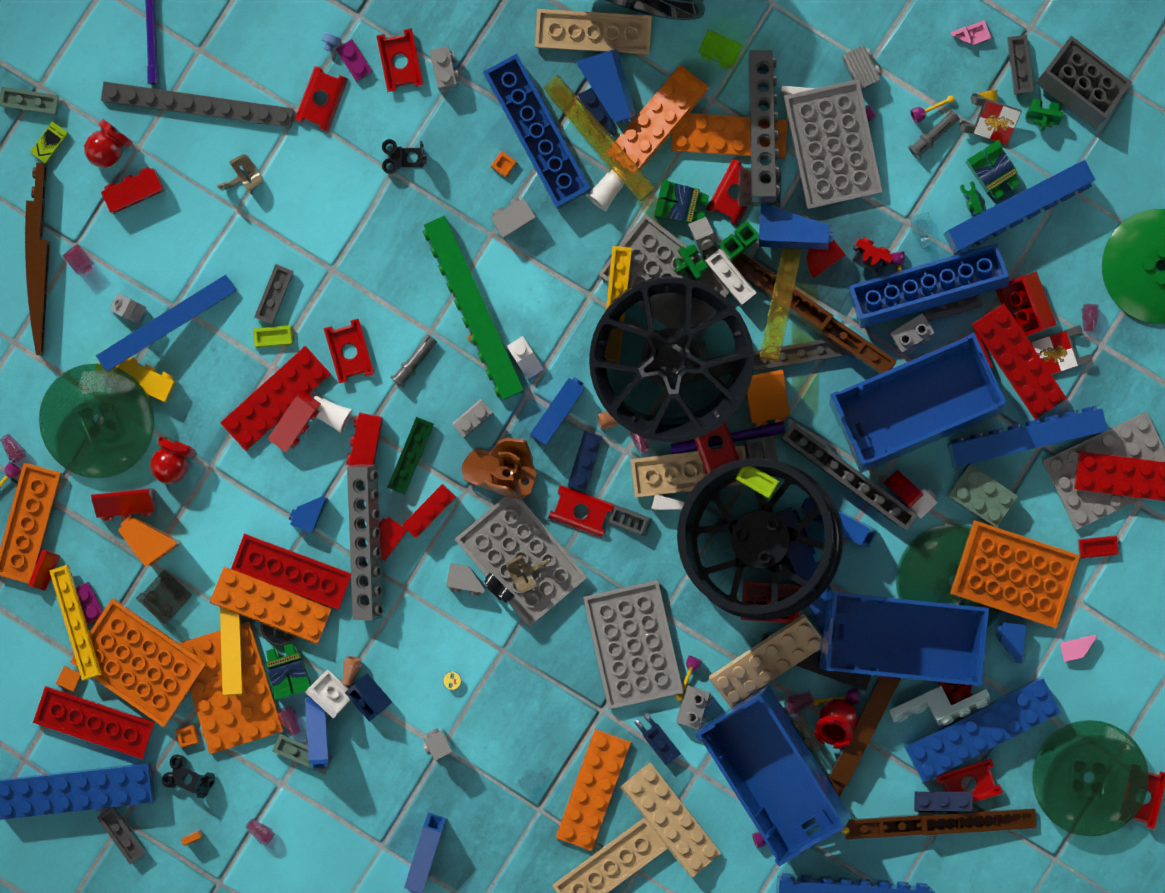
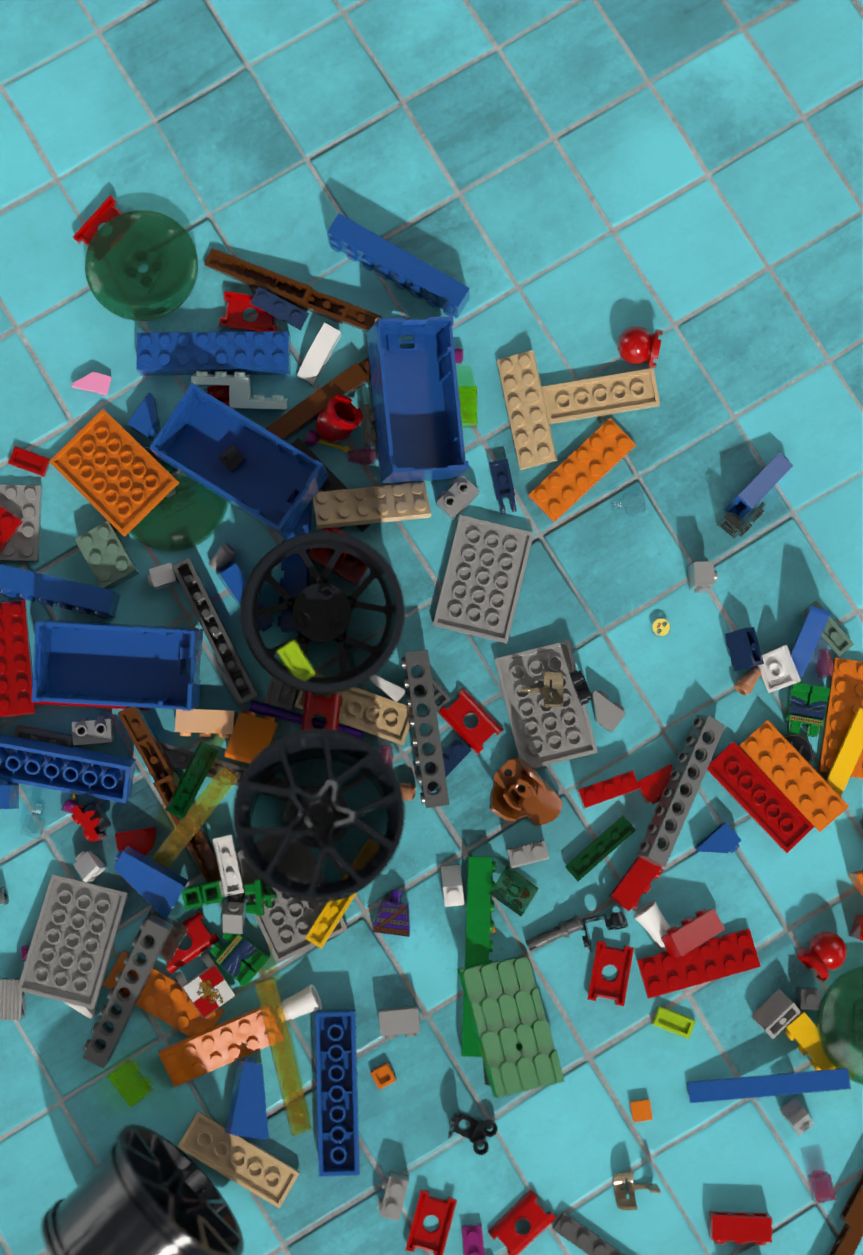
camera: 155 degrees left, 5 degrees down
(165, 415) = (808, 998): none -> dark grey brick
(190, 387) = (775, 1014): none -> light grey brick
(265, 246) = (641, 1110): none -> orange tile
(274, 294) = (654, 1061): dark grey plate -> none
(366, 397) = (616, 922): none -> black piece
(415, 262) = (510, 1026): none -> green piece
(433, 805) = (731, 522): none -> clear smoke bracket
(469, 380) = (513, 891): none -> clear green plate
(557, 410) = (446, 822): blue slope -> none
(563, 305) = (393, 916): none -> torso
(574, 430) = (421, 659): none -> dark grey brick
(595, 106) = (271, 1085): dark blue hinge -> none
(692, 664) = (439, 535): hinge -> none
(694, 161) = (208, 989): none -> flag
(726, 797) = (468, 406): none -> clear neon green brick
(800, 334) = (191, 780): none -> dark green plate
(815, 391) = (205, 722): none -> light nougat brick
(853, 215) = (89, 866): none -> white slope
(878, 547) = (222, 556): none -> light grey cone
(886, 777) = (319, 353): none -> white slope
(903, 488) = (172, 596): red plate -> none
(913, 639) = (232, 458): none -> black plate

